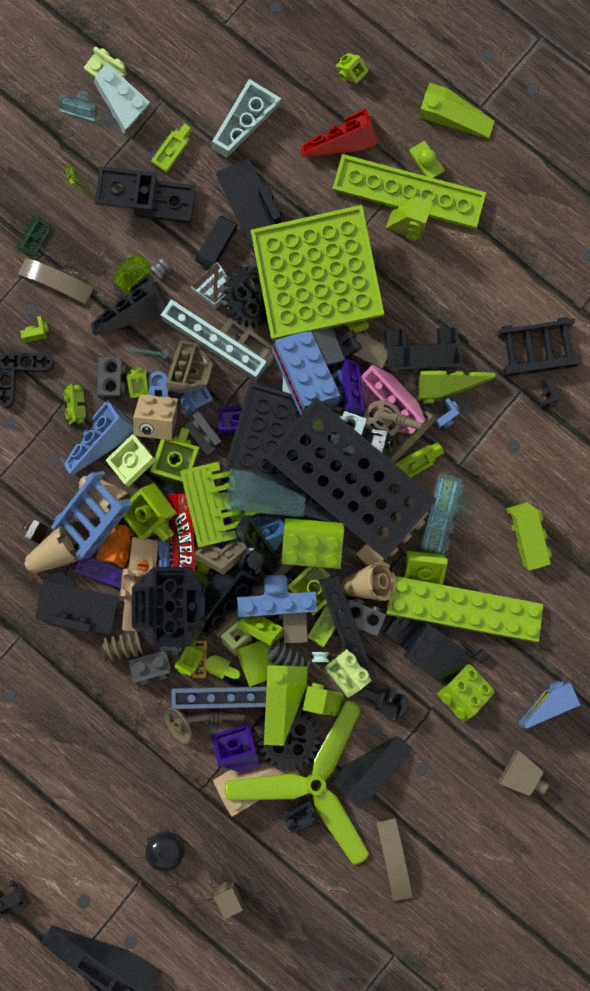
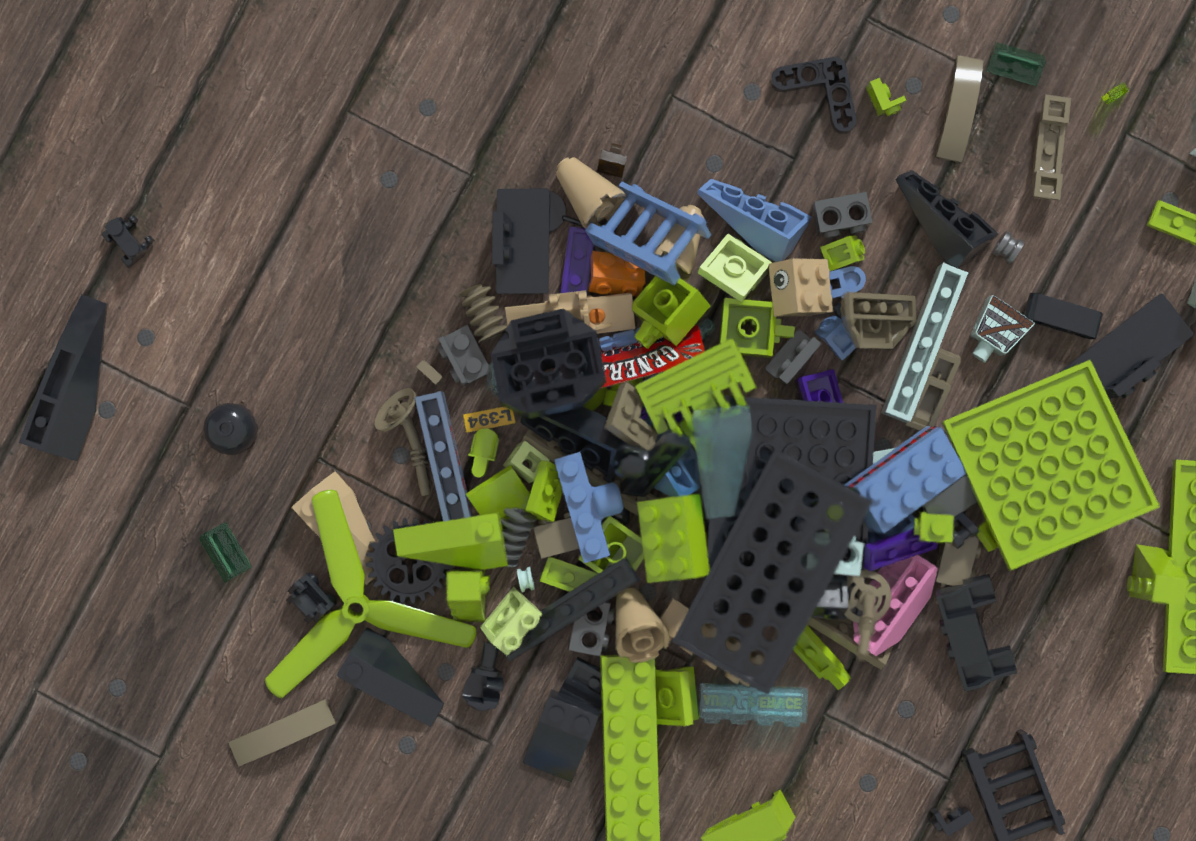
camera: 80 degrees right, 5 degrees up
(73, 397) = (785, 175): lime hinge -> none
(97, 226) = (1049, 147): none -> dark tan slope
(130, 271) = (996, 208): clear neon green slope -> none
(145, 194) = (1108, 203): black bracket -> none
(156, 694) = (430, 372): none -> dark tan tile
(164, 354) = (891, 278): clear light blue hinge -> none
(190, 660) = (484, 407): lime bracket -> none
(228, 899) = (184, 526): dark tan brick -> none
(236, 749) = (380, 493): dark purple slope -> none
(239, 306) = (980, 367): black gear -> none
(254, 874) = (225, 552): none -> clear green slope
(344, 360) = (934, 528): none -> lime bracket
(439, 385) = (929, 663): lime wedge -> none
(447, 419) = (885, 685): medium blue bracket -> none
(466, 693) = (519, 785): lime bracket -> none
(480, 656) = (572, 792): black hand -> none

